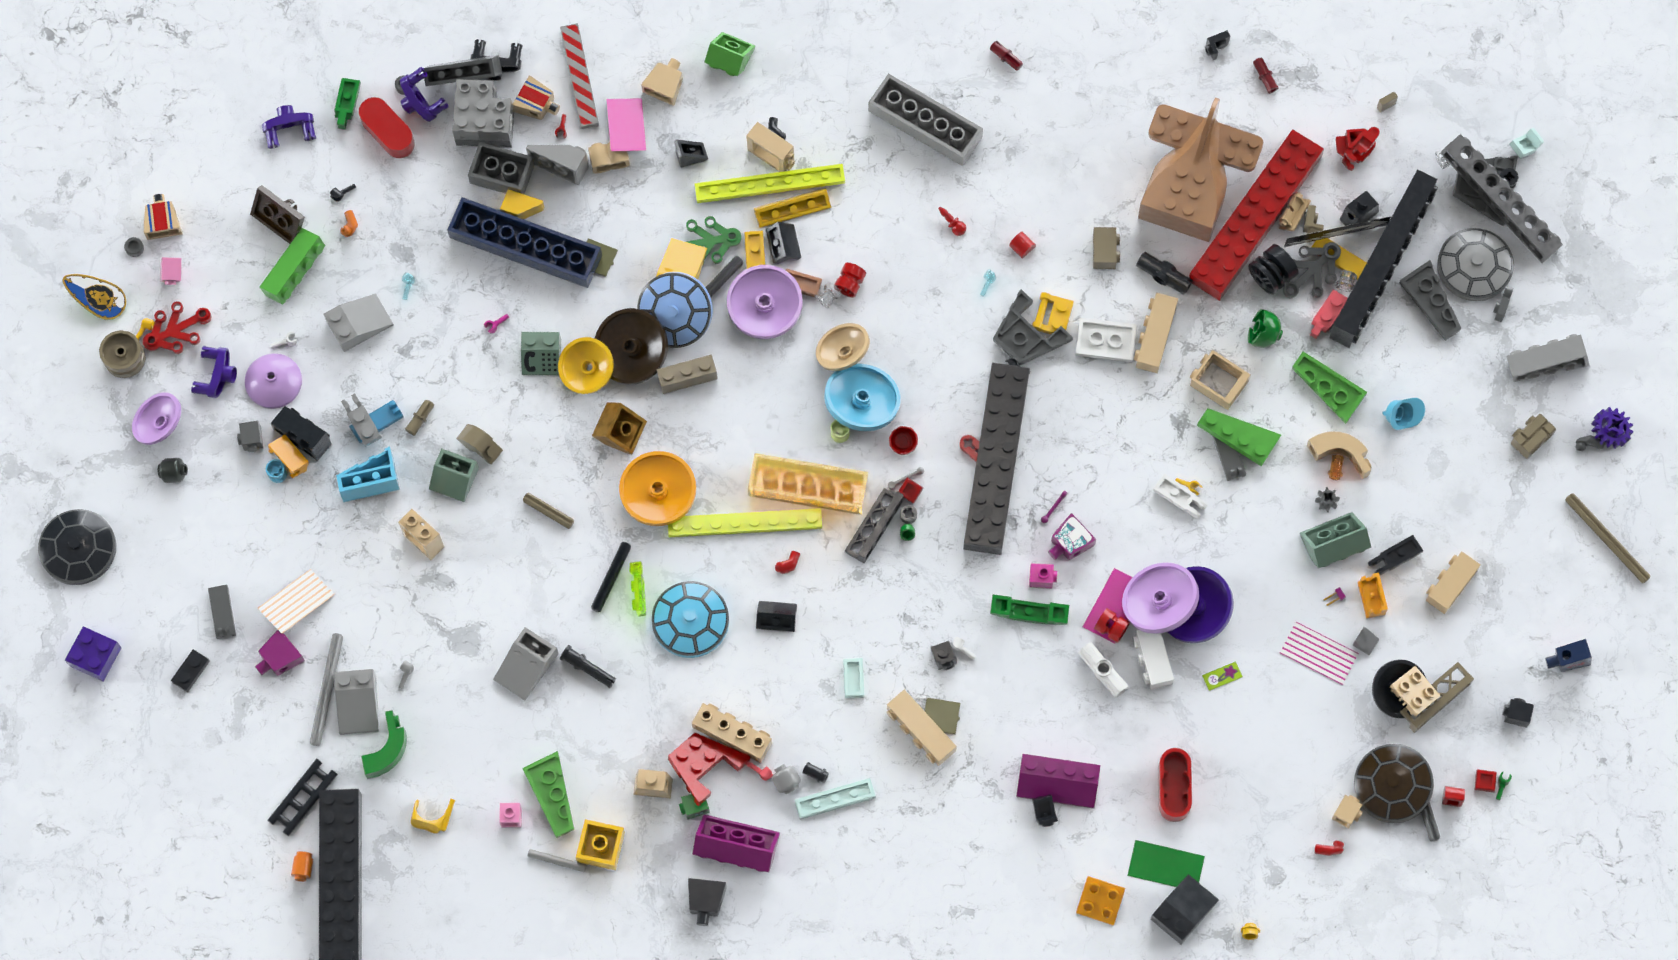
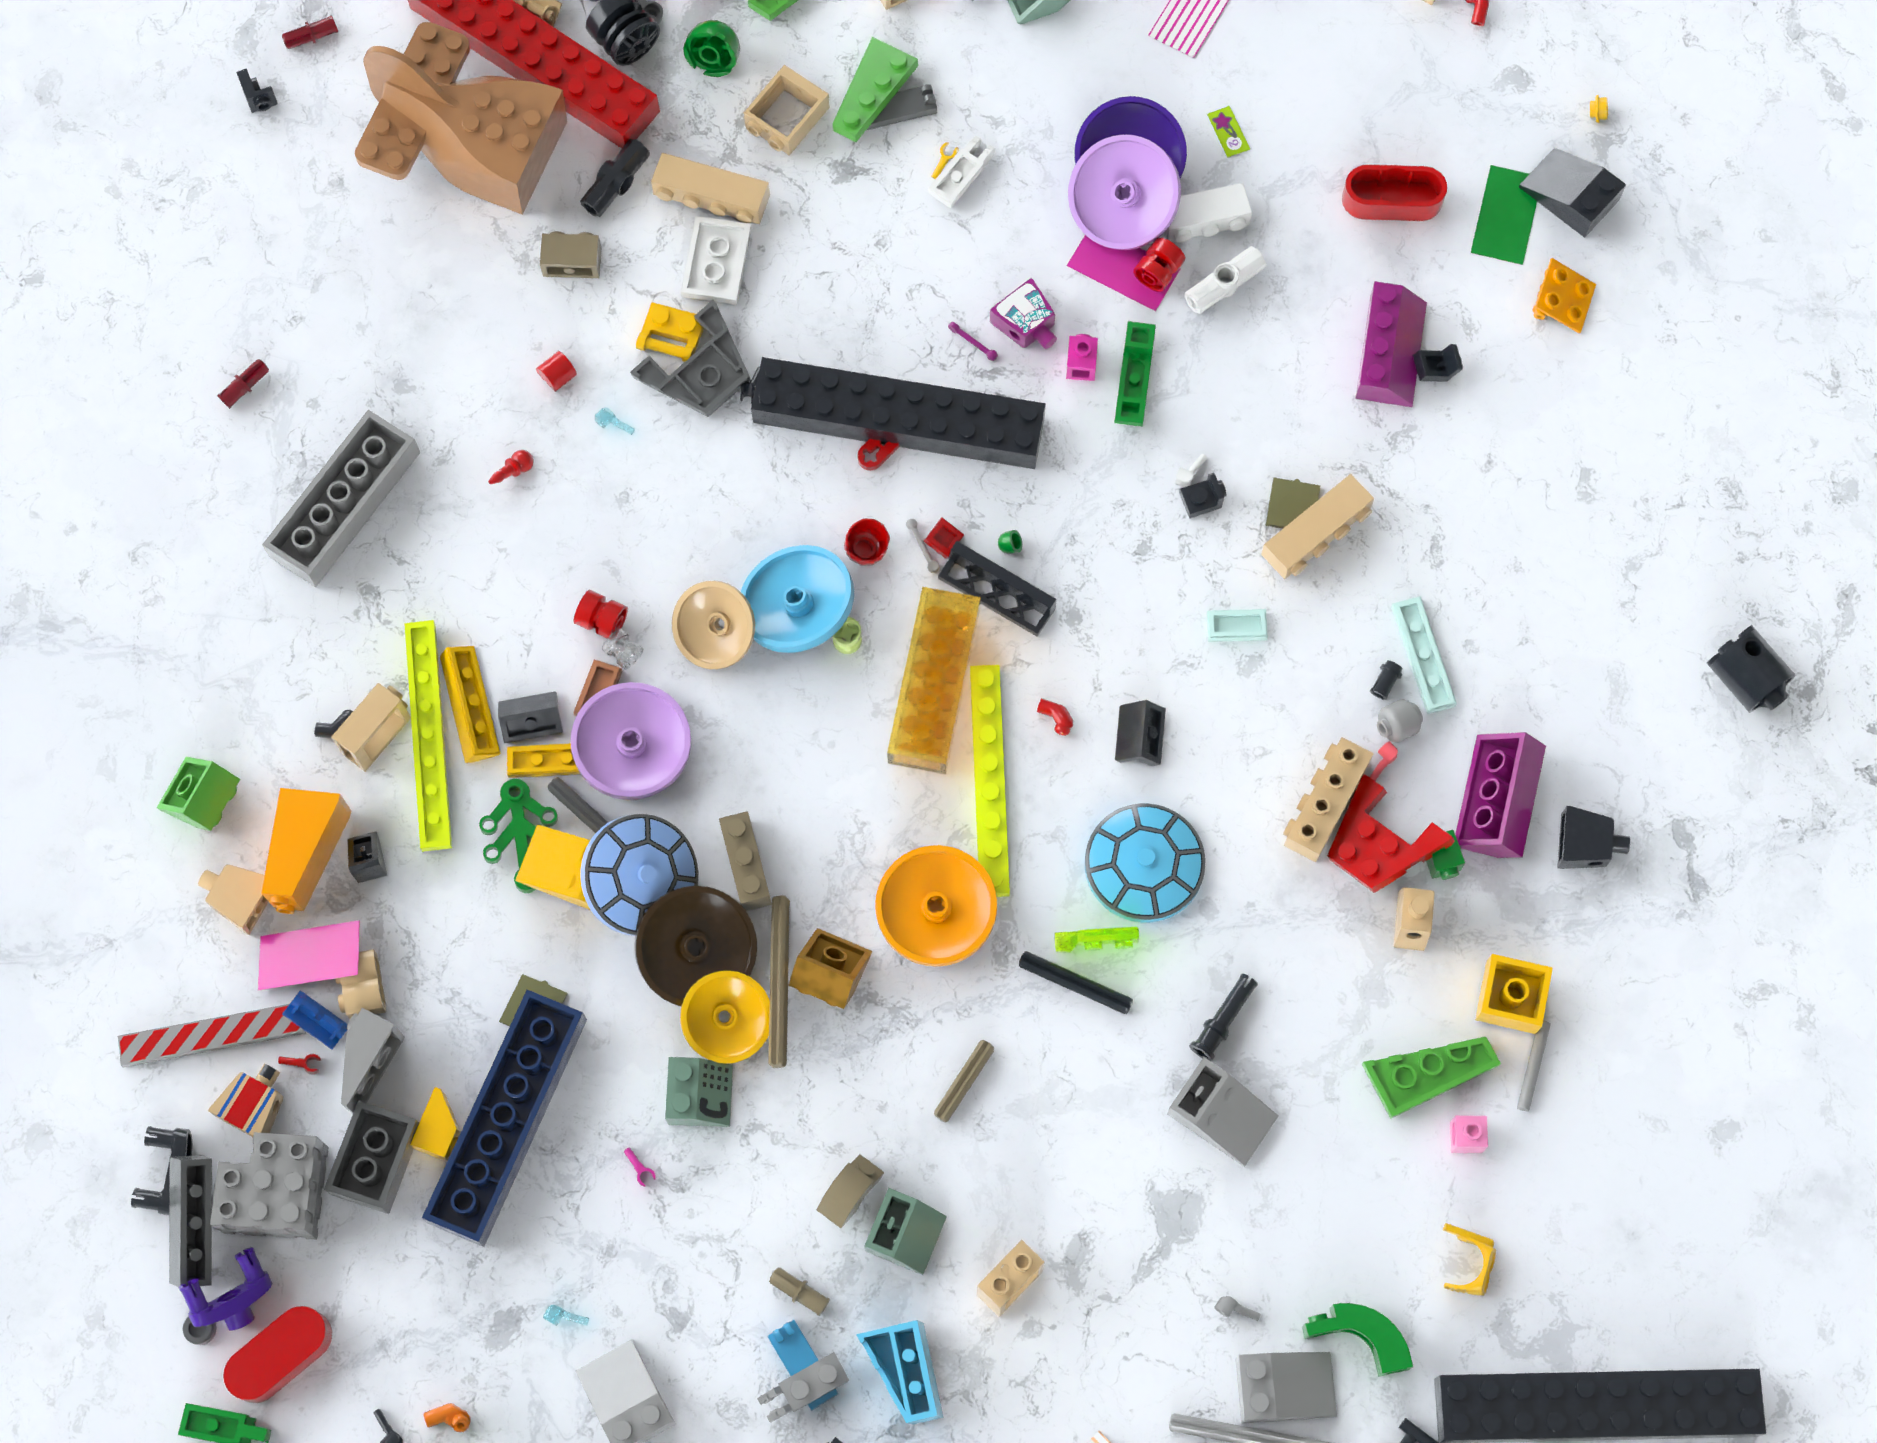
camera: 90 degrees left, 0 degrees up
(587, 131) = (315, 1020): none -> blue hinge
(609, 396) = (779, 982): none -> dark tan axle
(692, 113) = (301, 844): none -> light orange slope
(908, 520) = (976, 534): dark grey bush -> none

